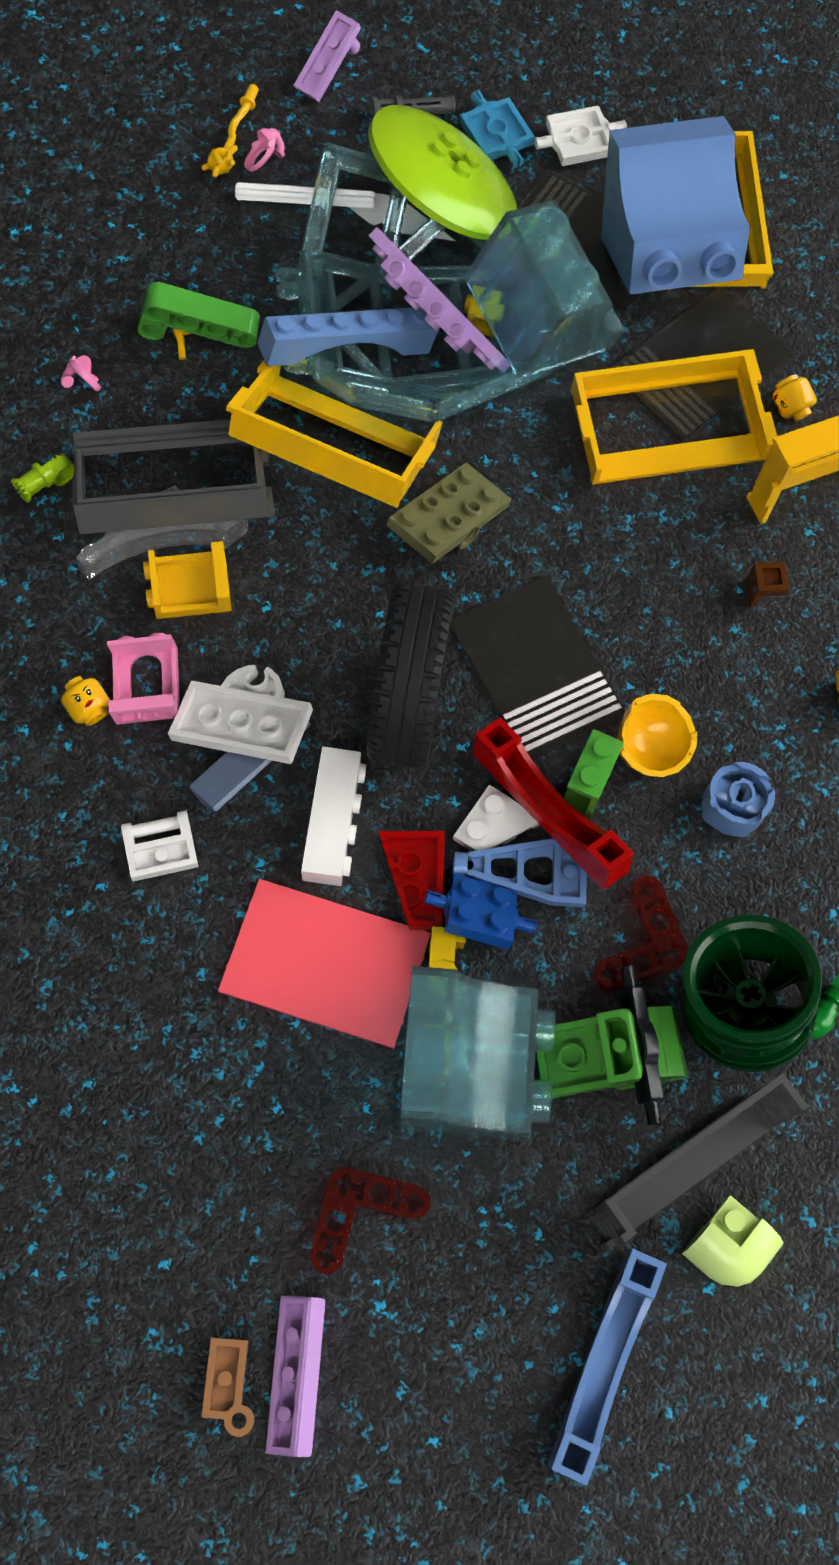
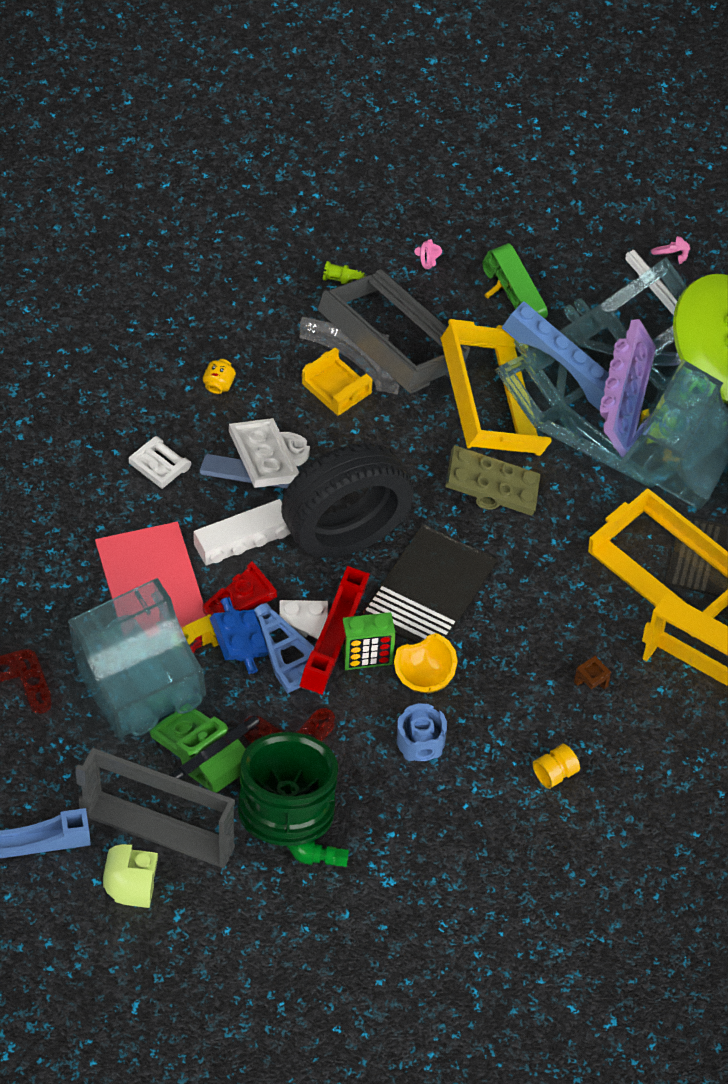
camera: 60 degrees right, 15 degrees down
(149, 708) = (233, 398): bright pink panel -> none
(221, 159) = (643, 233): yellow piece -> none

